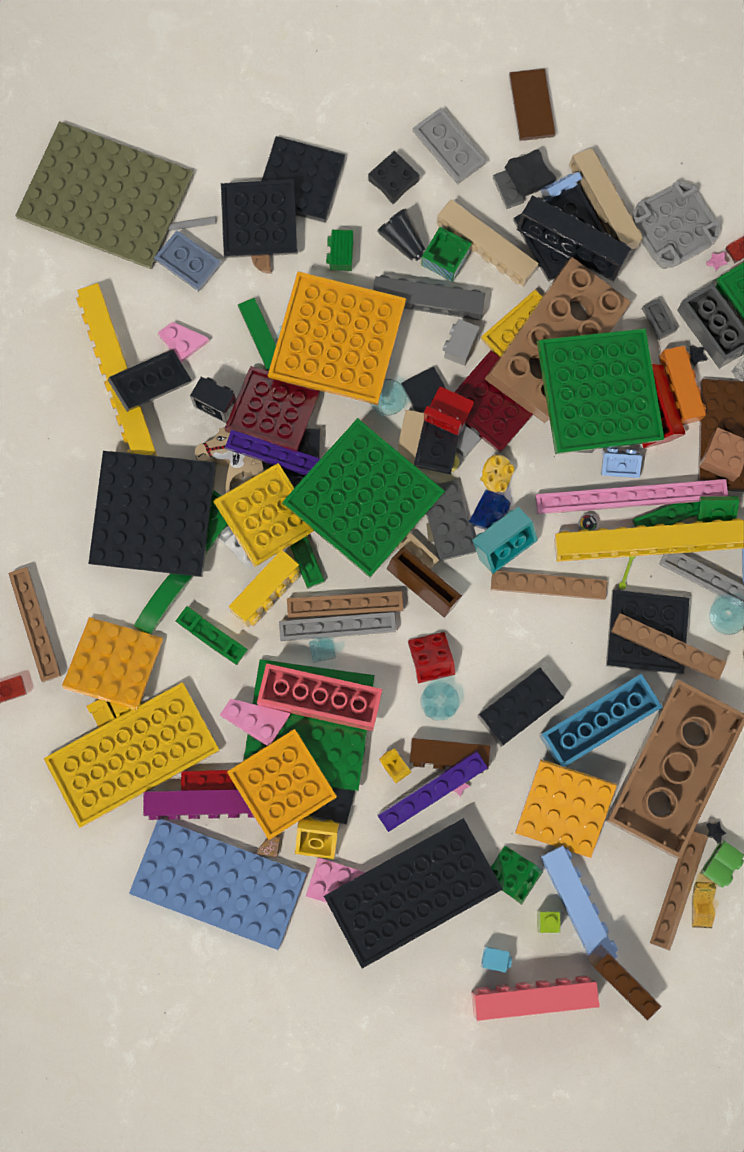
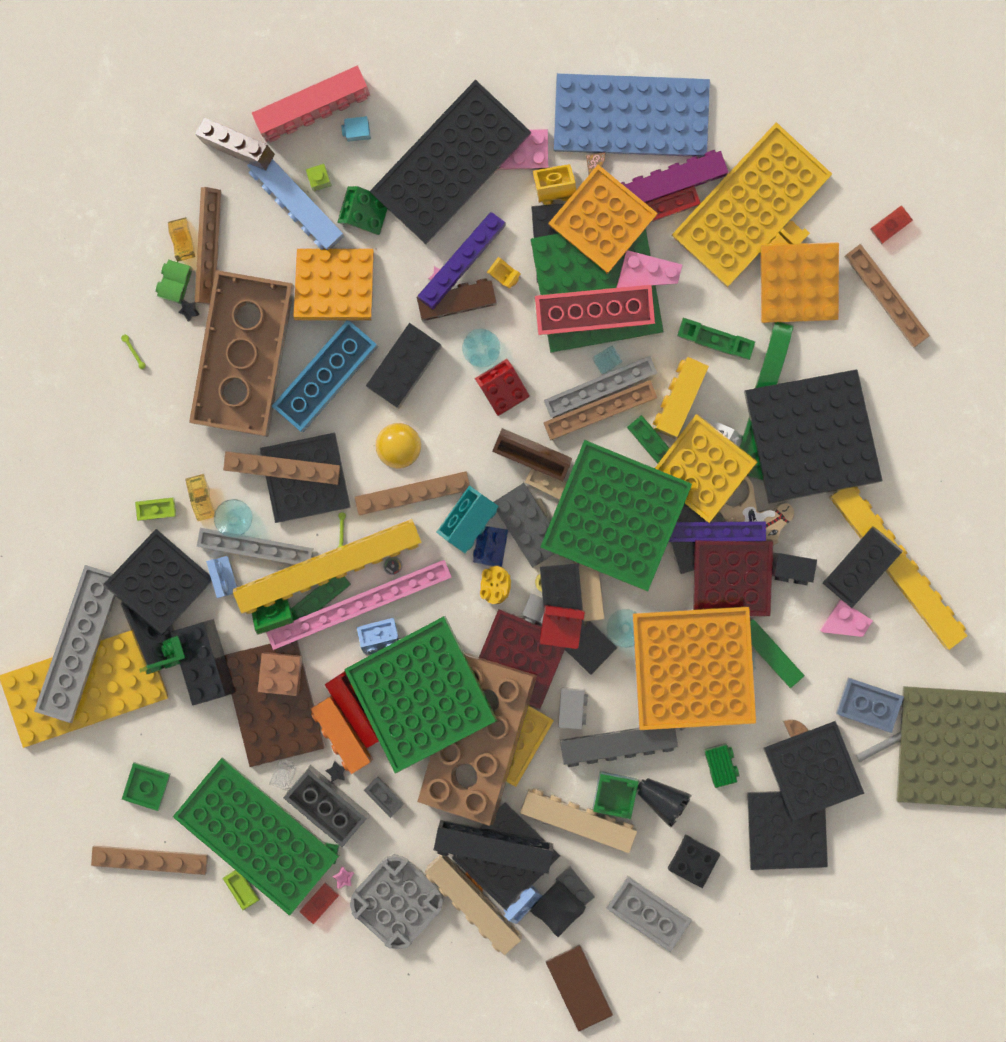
camera: 160 degrees right, 10 degrees up
(548, 635) = (398, 445): none -> yellow piece

